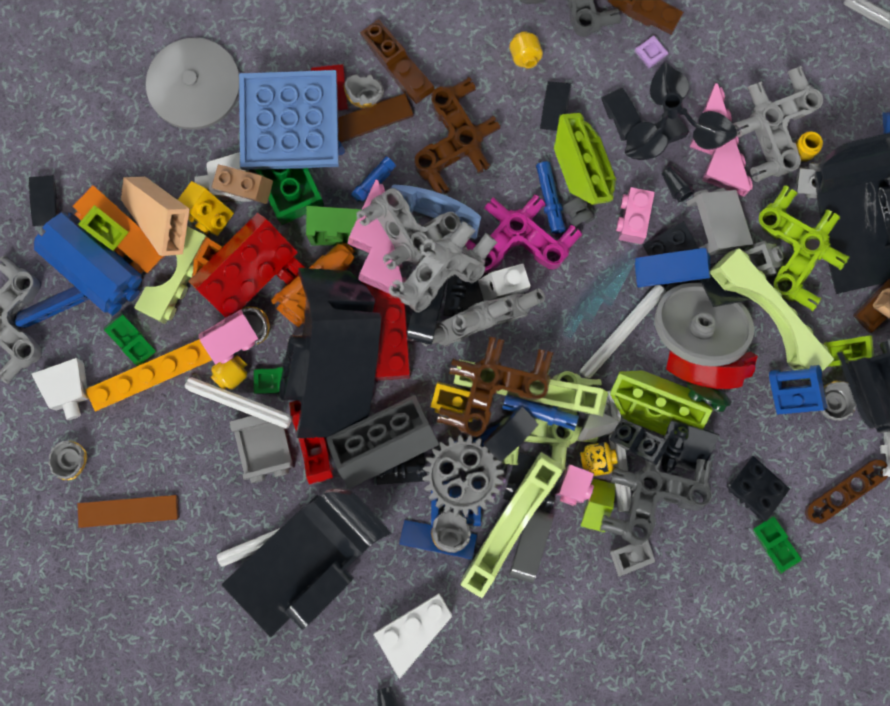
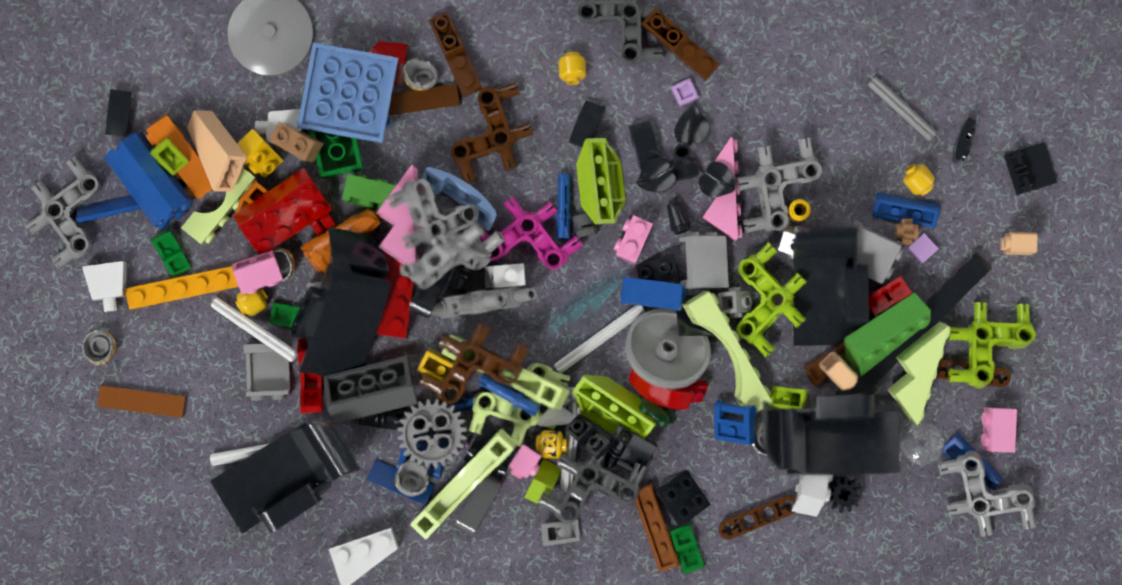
camera: 10 degrees right, 5 degrees up
(380, 173) = (410, 158): blue plate -> none
(510, 434) = (479, 408): black slope -> none
(738, 530) = (656, 529): none -> dark orange tile

